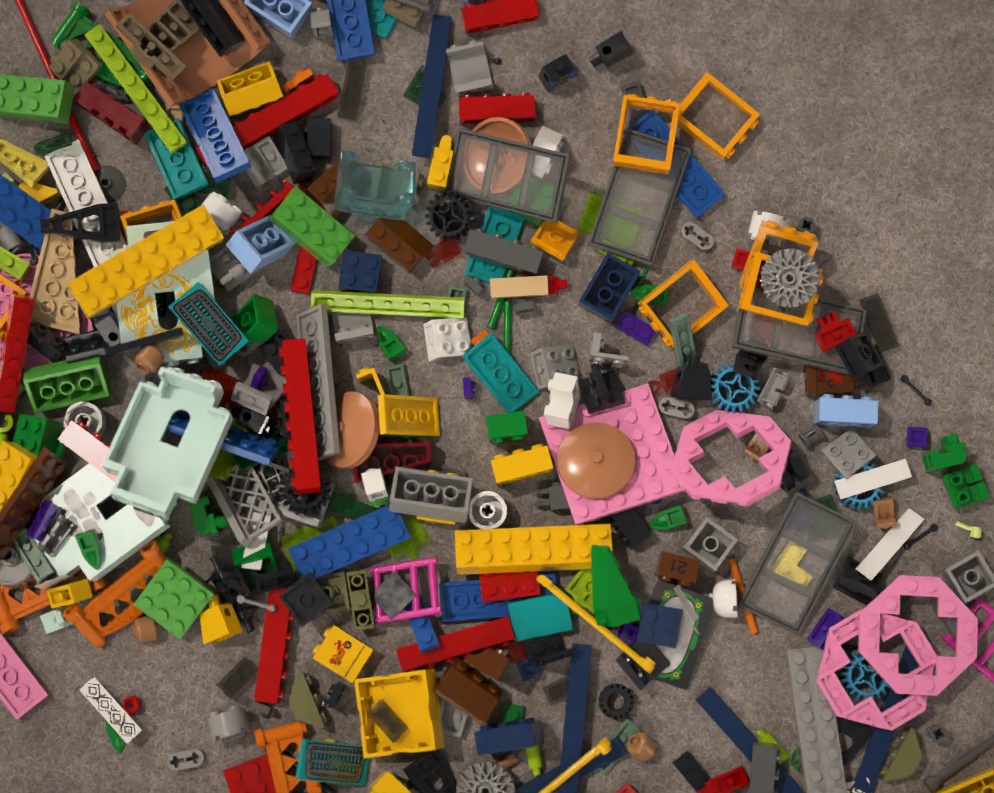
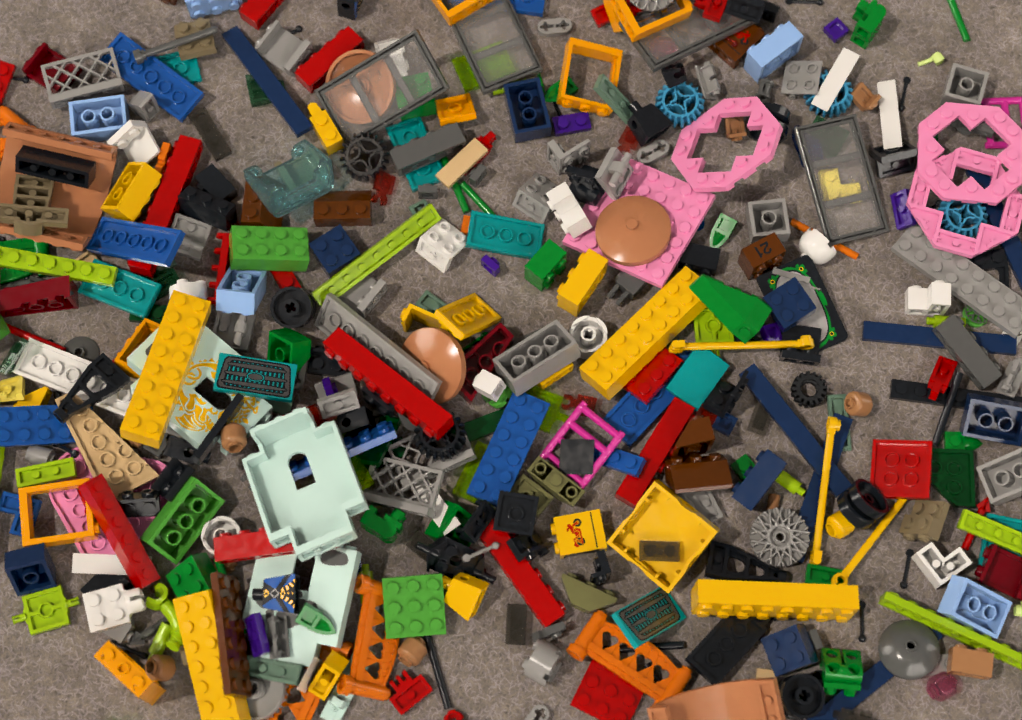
camera: 40 degrees left, 10 degrees down
(82, 506) = (280, 594): none -> torso
(117, 656) = (409, 692): none -> red hinge
(150, 661) = (437, 672): none -> black bar
(289, 51) = (136, 141): none -> white bracket
(289, 290) = (283, 313): none -> black wheel
(292, 631) = (528, 547): none -> black bracket
(389, 343) = (404, 284): green plate -> none
(443, 561) = (591, 401): none -> clear red plate
(623, 402) = (614, 172): none -> light grey plate
(772, 717) = (928, 301): none -> white brick
(957, 488) = (899, 39): green hips -> none

